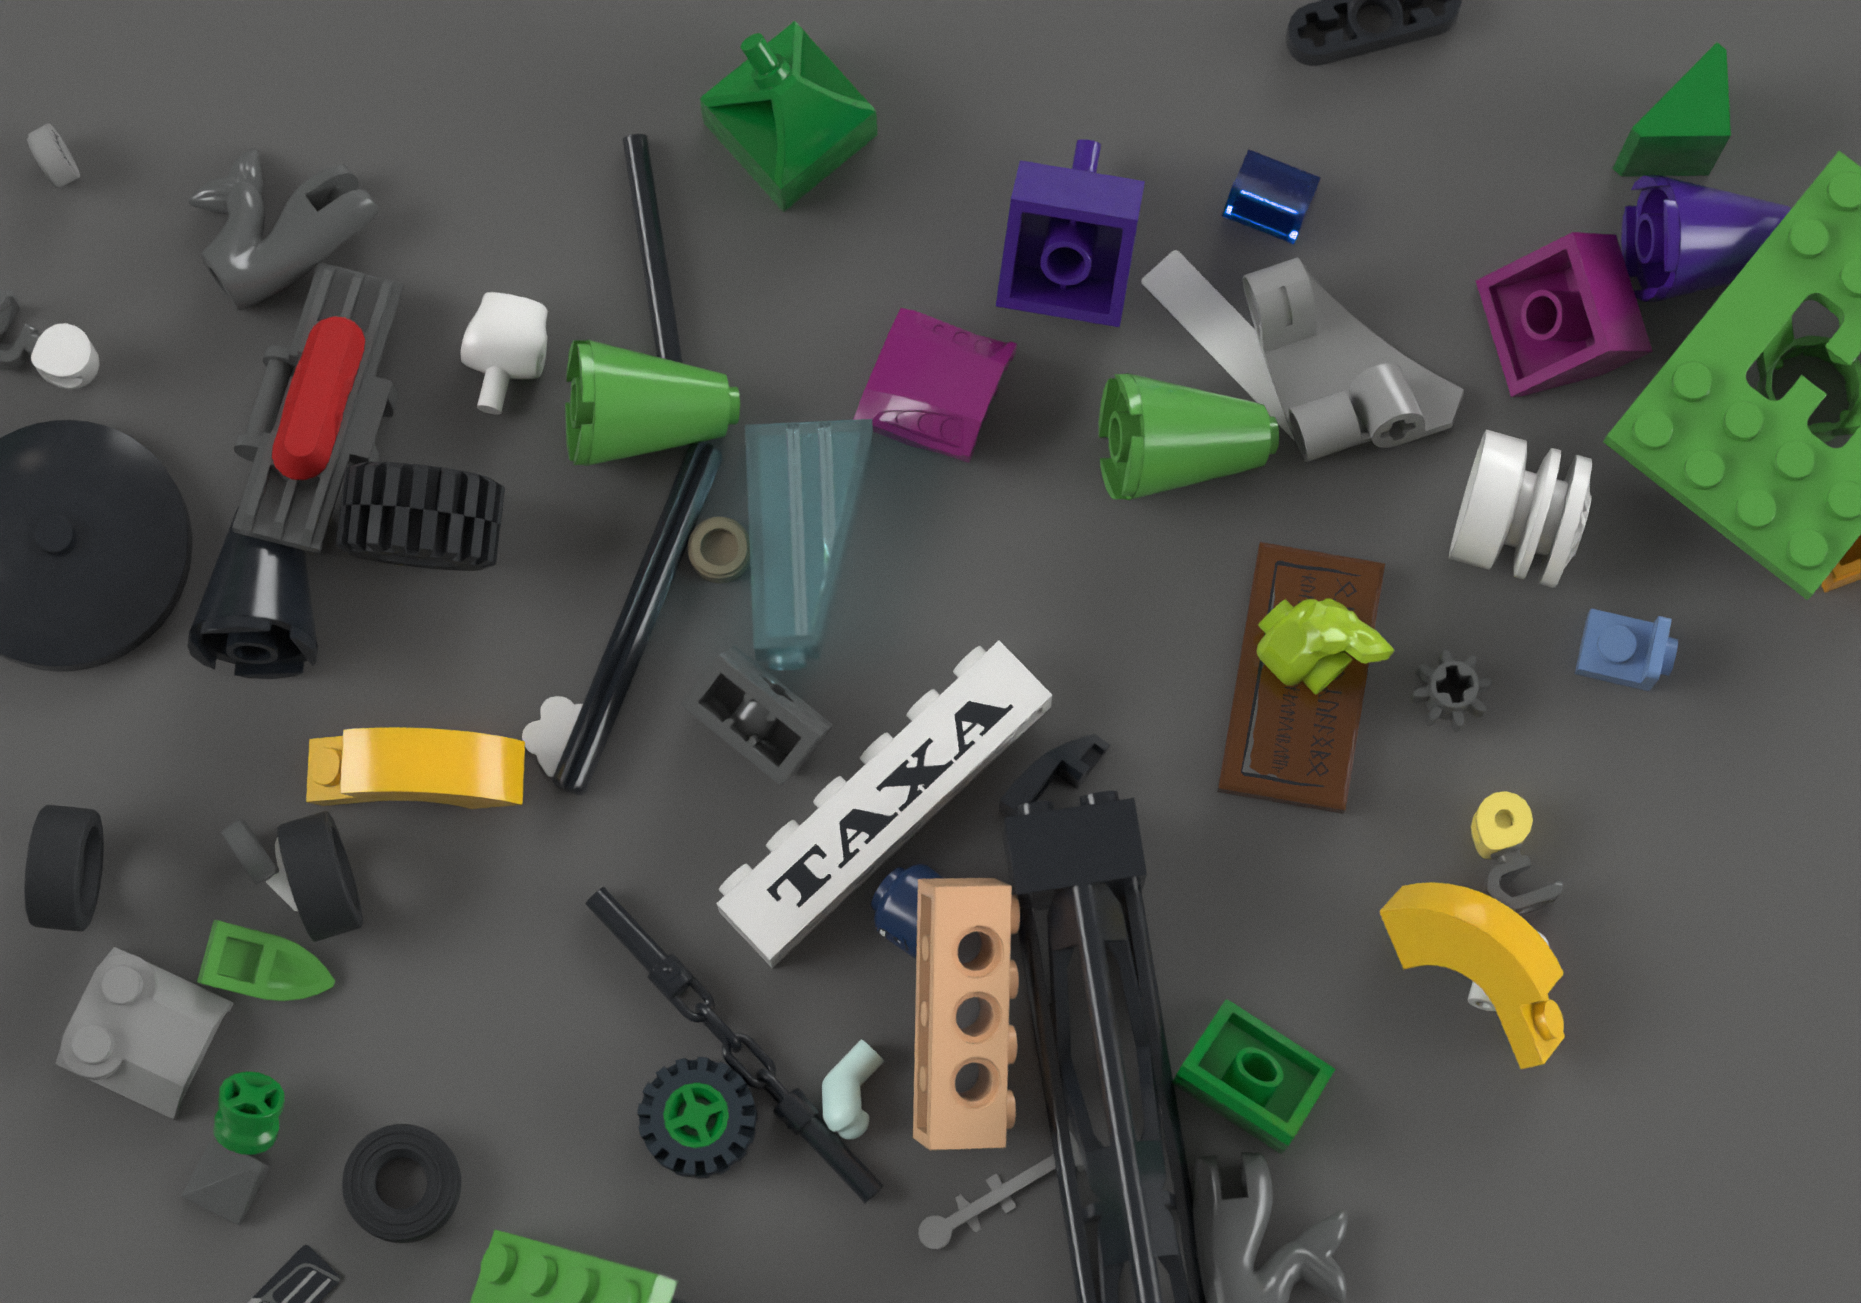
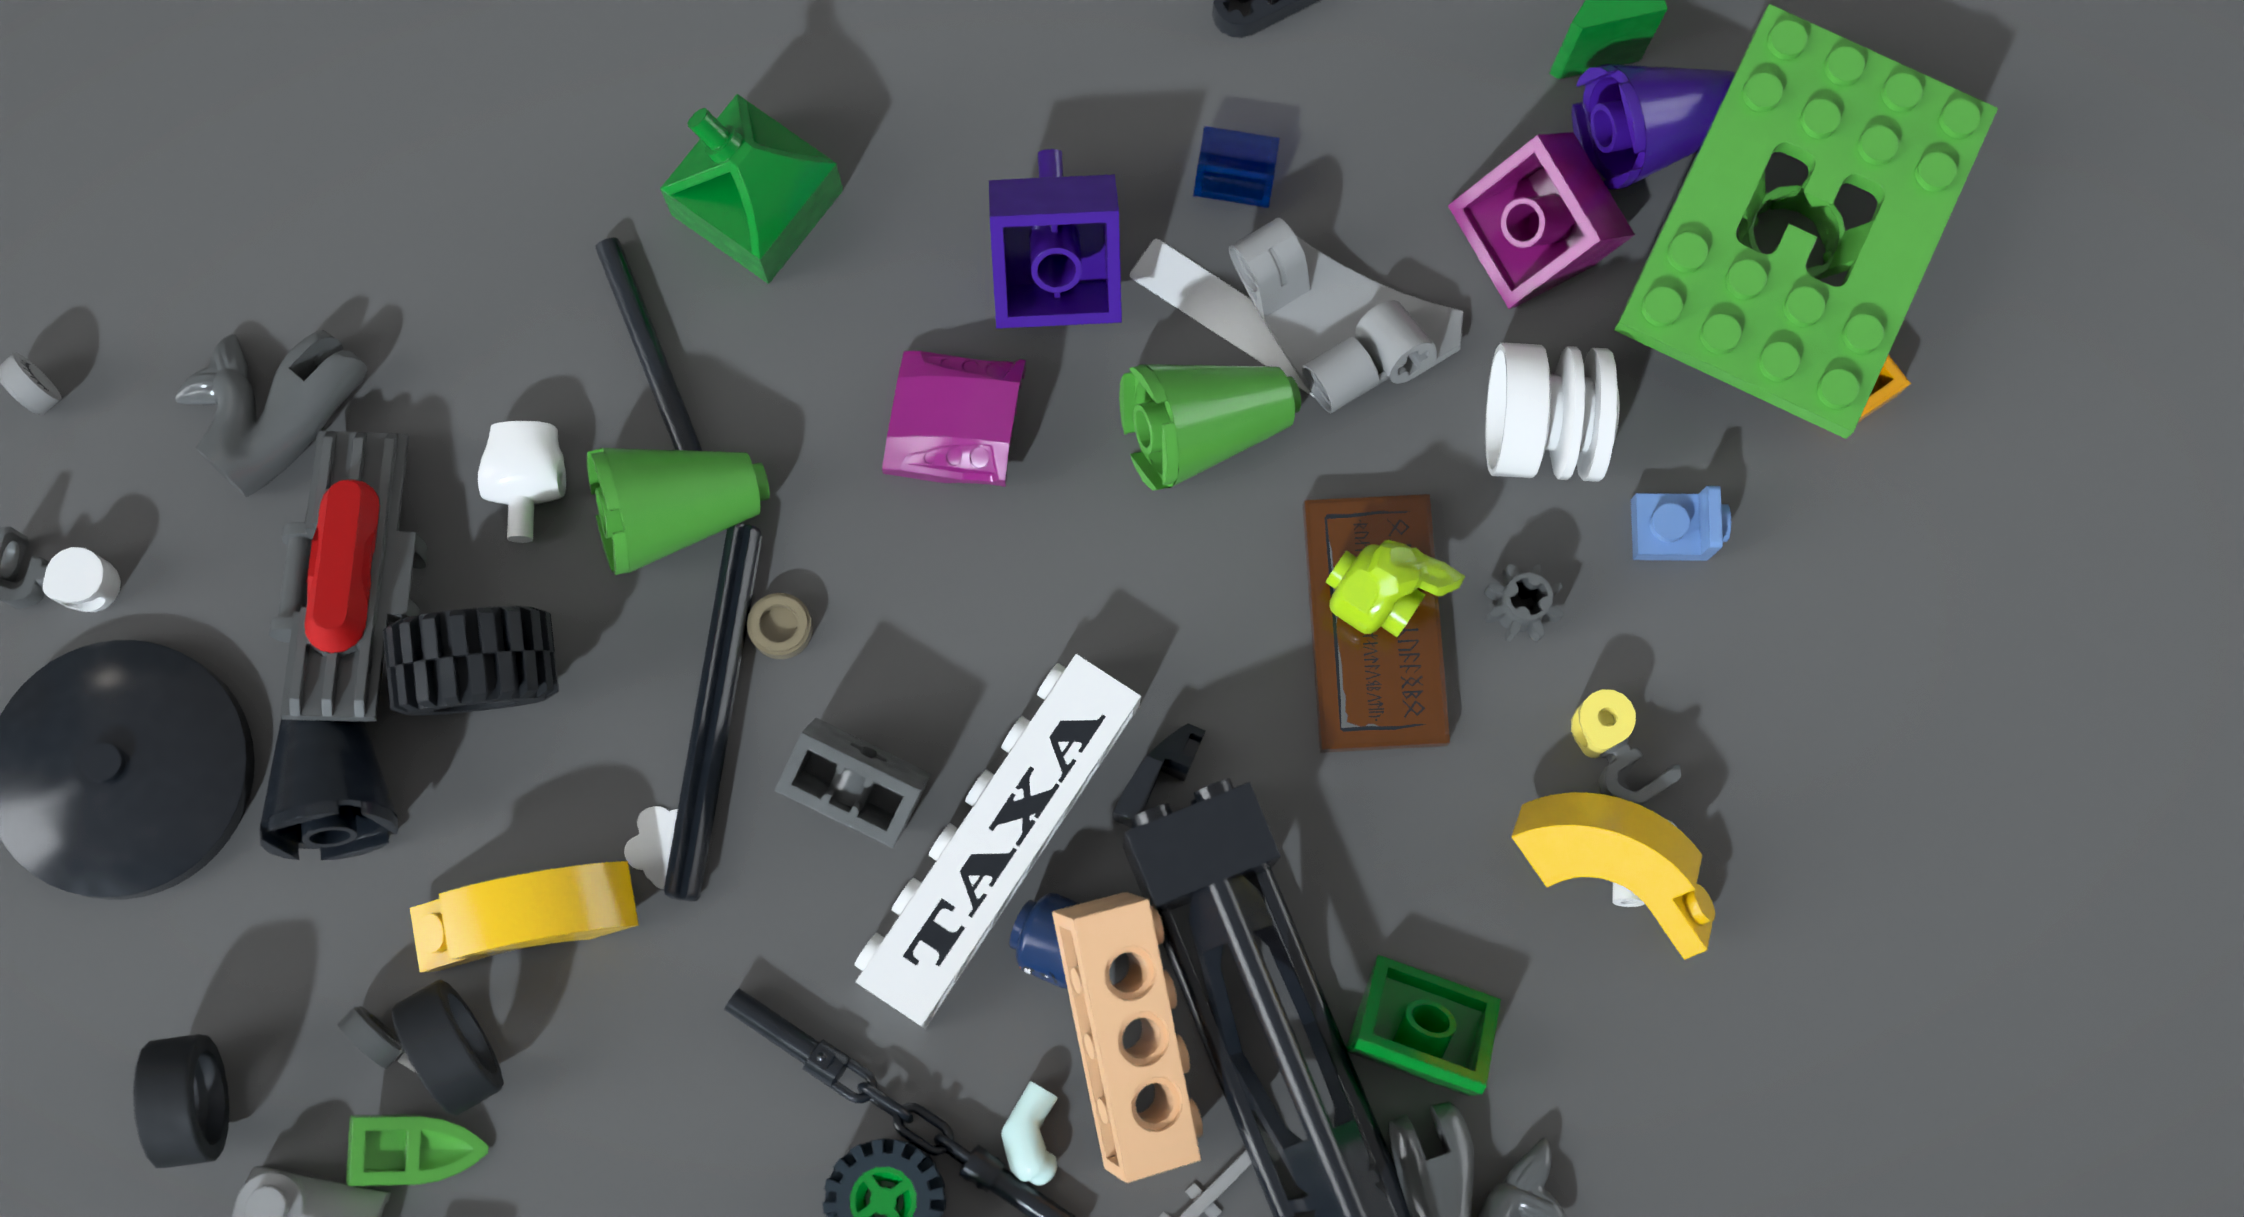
camera: 20 degrees left, 0 degrees up
(801, 519) = (852, 577): clear light blue slope -> none

